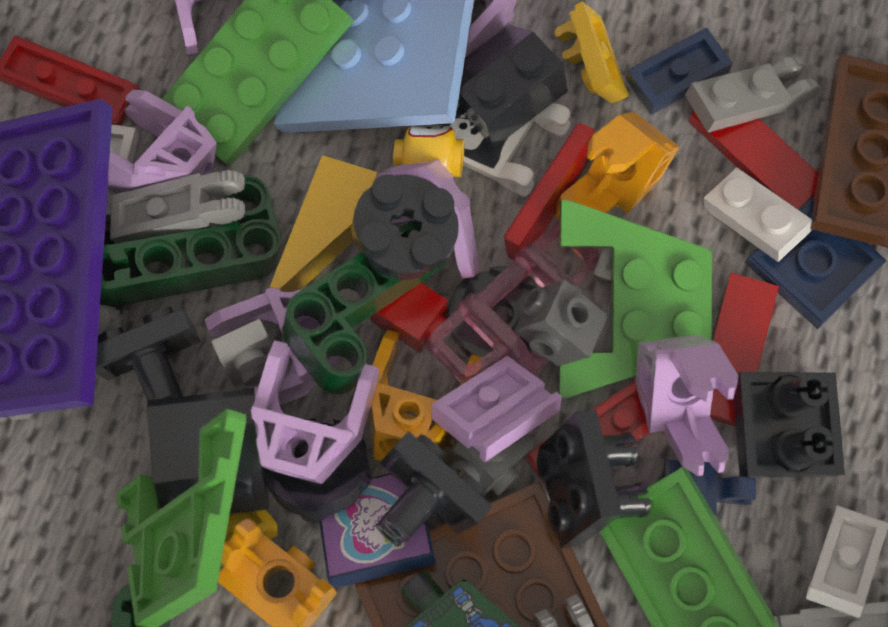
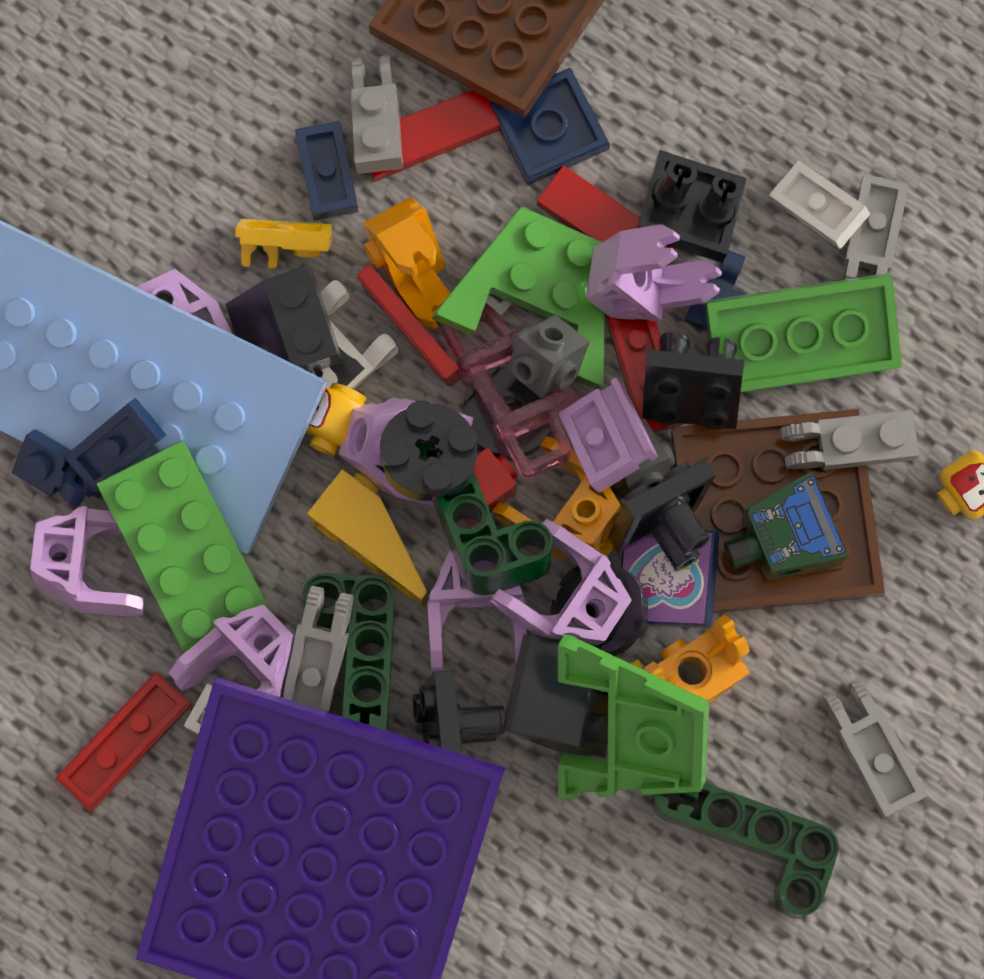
camera: 75 degrees left, 5 degrees up
(244, 353) = (482, 636): light grey plate -> none
(757, 214) = (491, 157): white plate -> none

